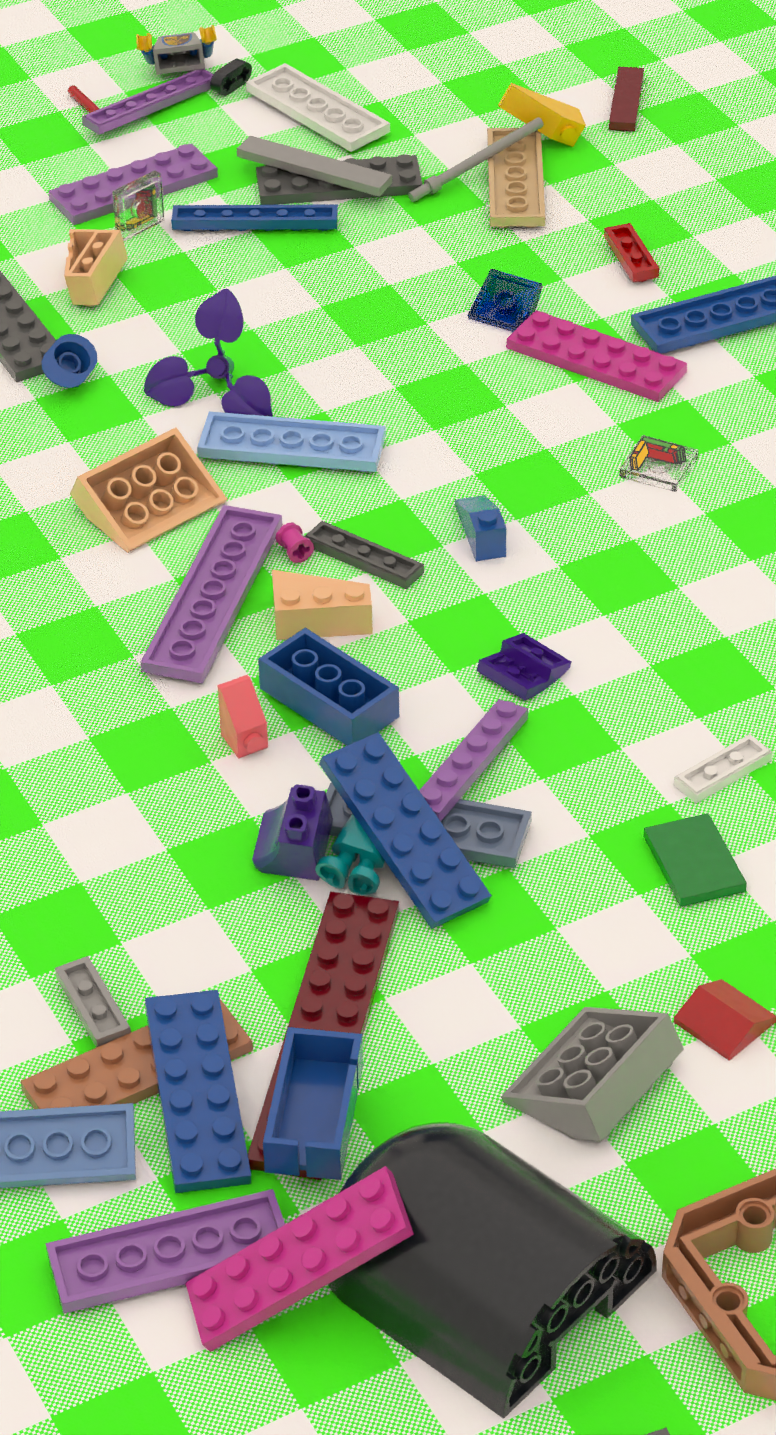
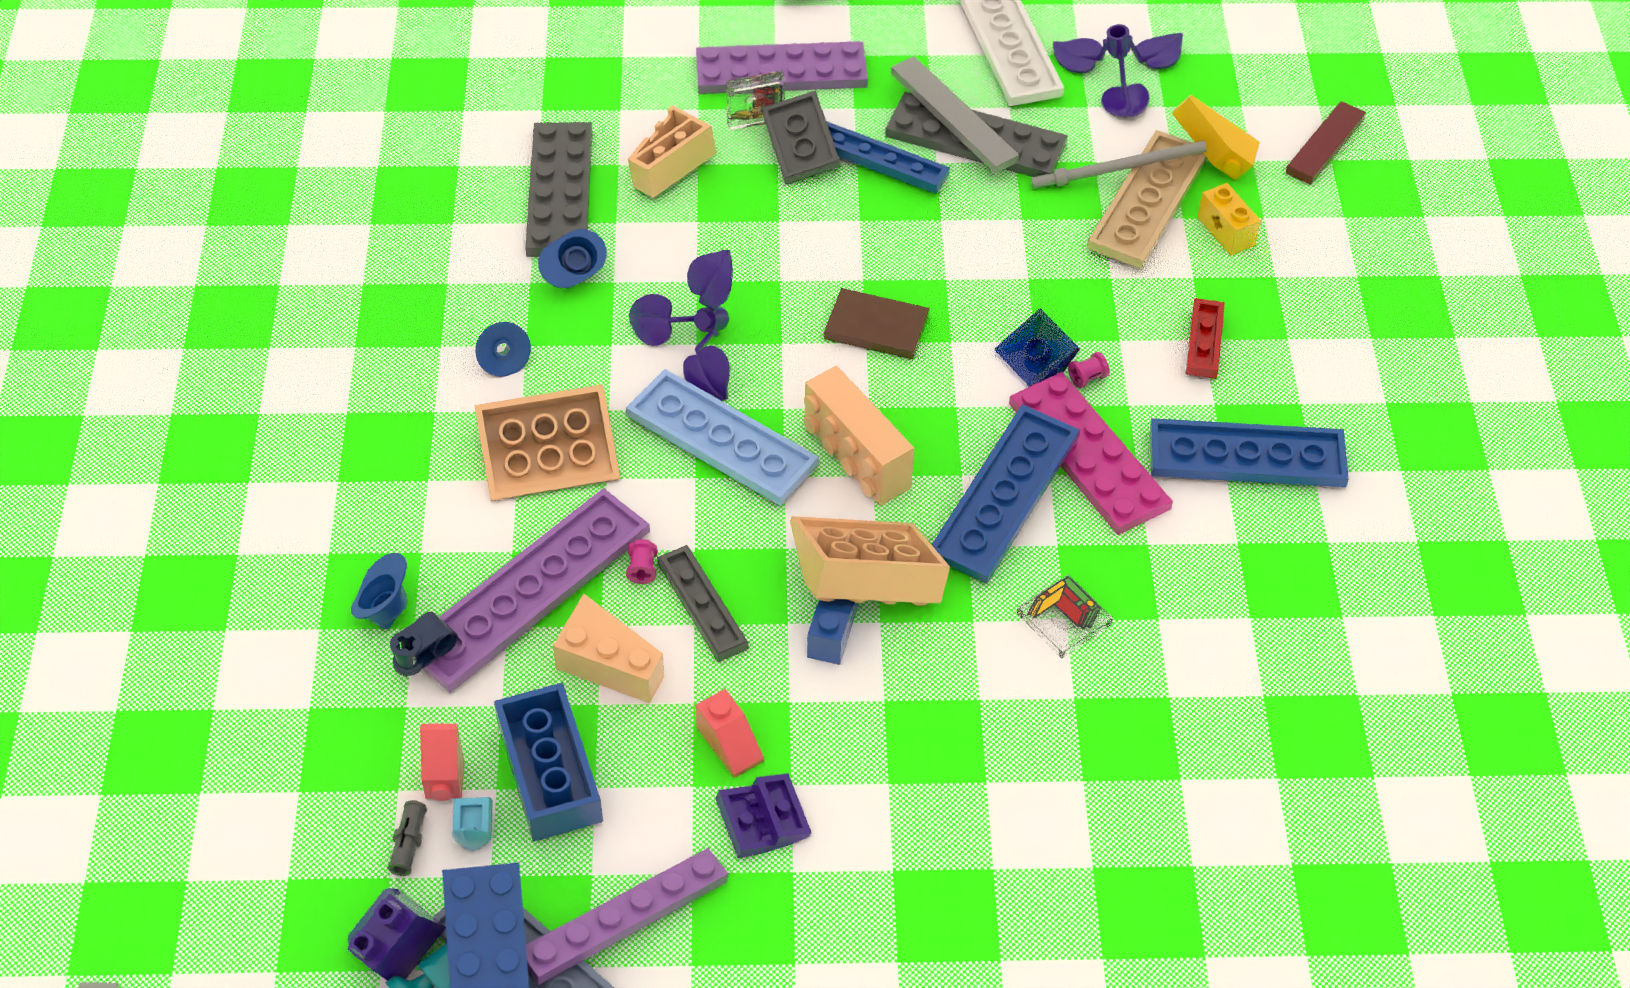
camera: 25 degrees right, 10 degrees up
(66, 438) = (514, 355): none -> blue piece
(94, 631) = (382, 592): none -> blue piece
(162, 650) = (424, 640): none -> dark blue piece
(195, 221) = (800, 137): none -> dark grey tile
(255, 794) = (407, 838): none -> dark grey pin
(295, 752) = (472, 822): none -> medium azure plate
(358, 329) = (876, 323): none -> reddish brown tile
(410, 397) = (858, 435): none -> light nougat brick
(445, 78) = (1131, 100): none -> dark purple plant
(456, 622) = (728, 733): none -> coral slope
(487, 473) = (868, 561): none -> light nougat slope
(554, 303) = (1088, 369): none -> dark pink bush
(554, 398) = (1004, 493): none -> blue plate
(591, 168) = (1229, 219): none -> yellow brick

